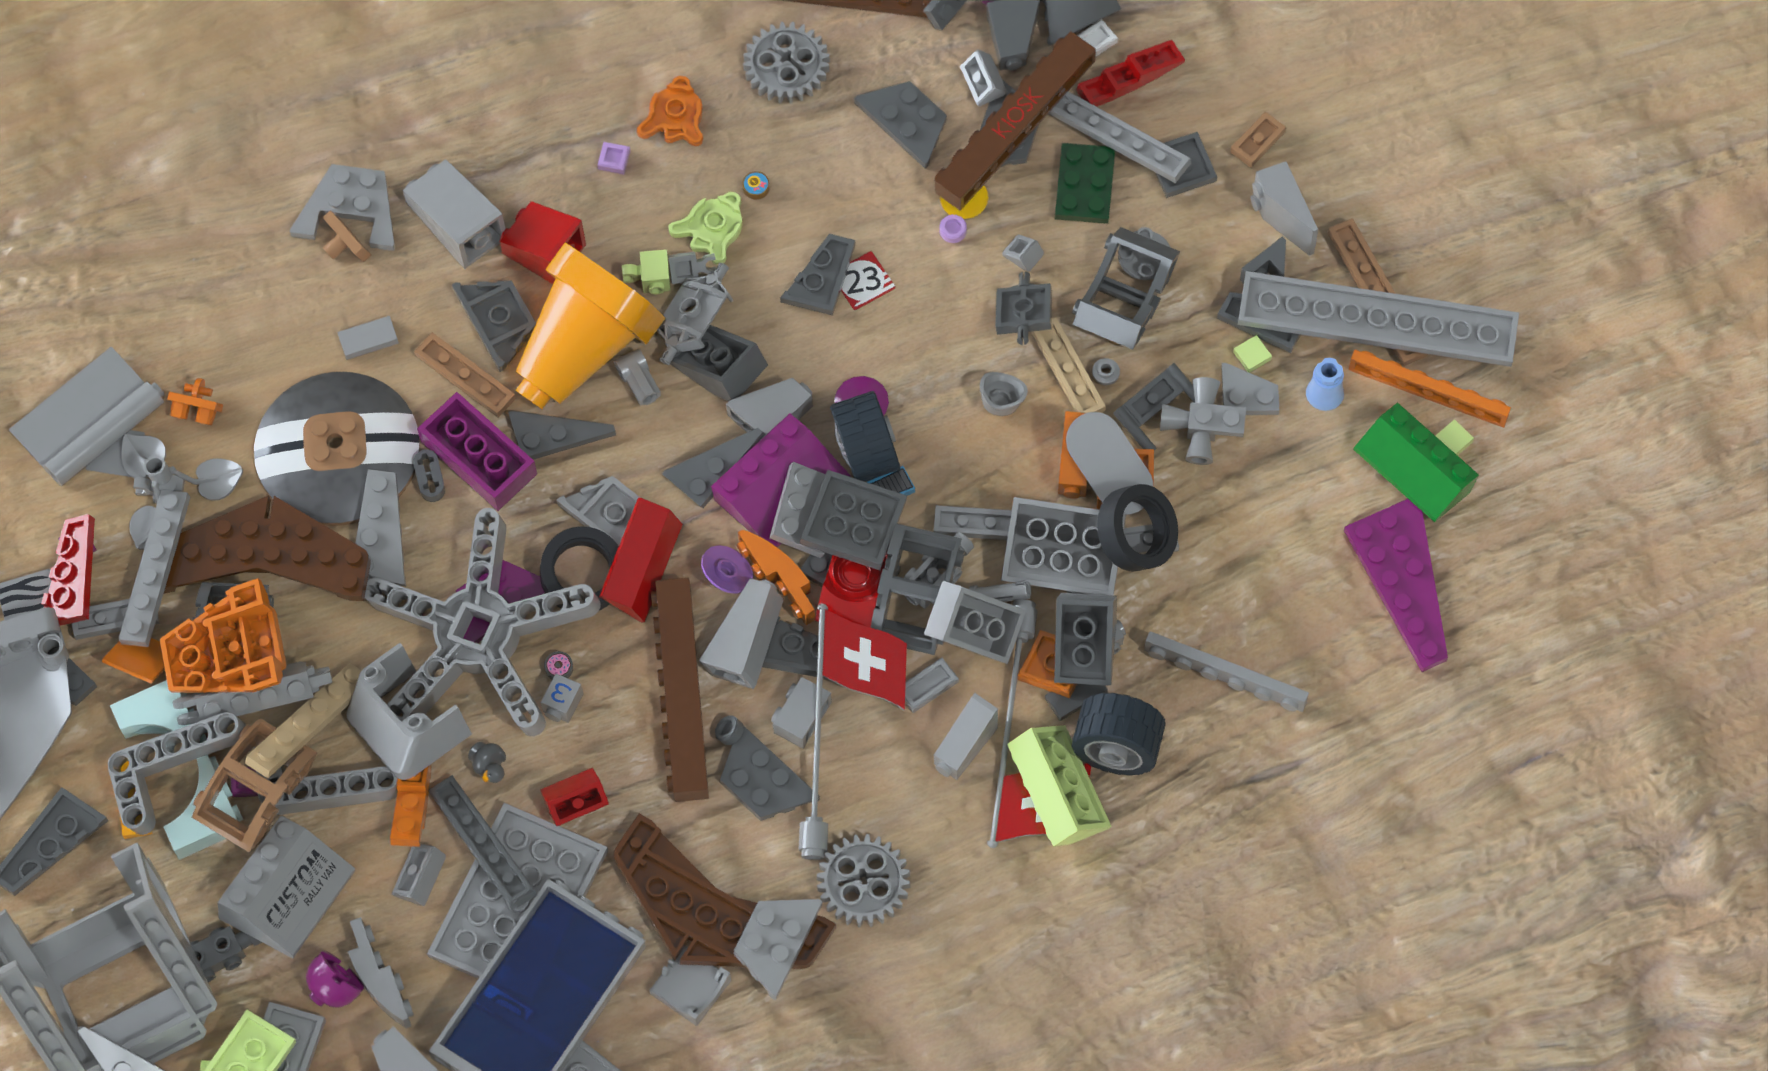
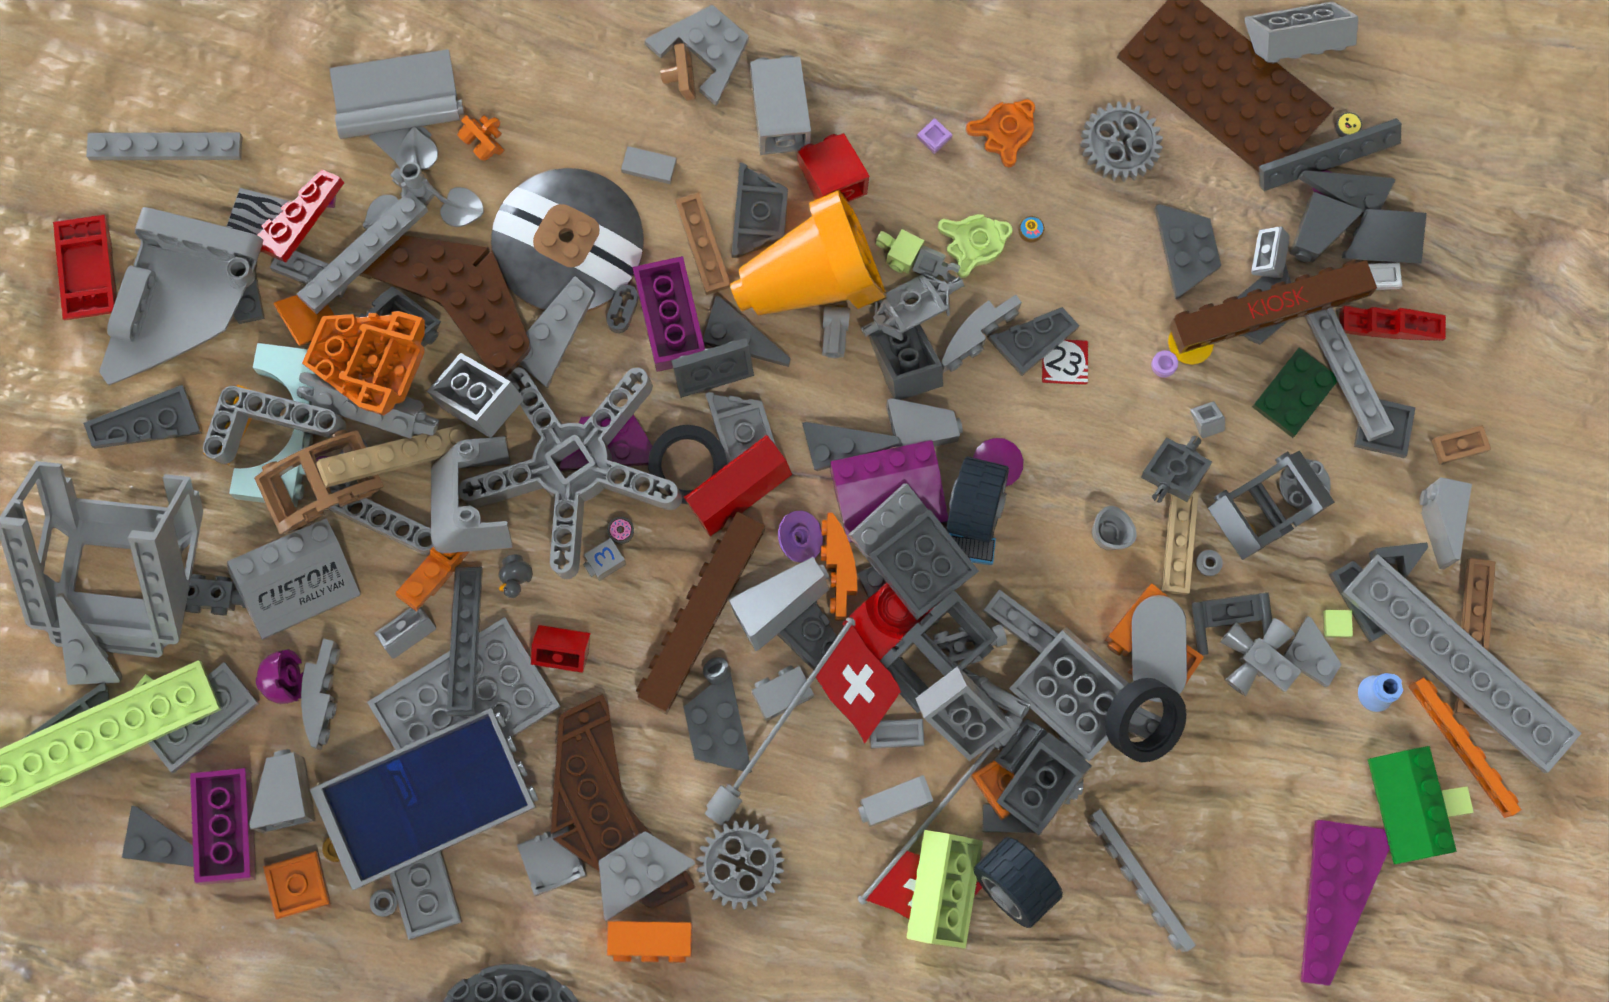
camera: 25 degrees right, 10 degrees up
(347, 625) = (475, 395): none -> light grey brick
(549, 472) = (713, 367): none -> dark grey plate
(764, 299) = (970, 337): none -> light grey slope
(826, 990) = (649, 941): none -> orange brick
(1043, 623) = (1020, 746): none -> dark grey tile

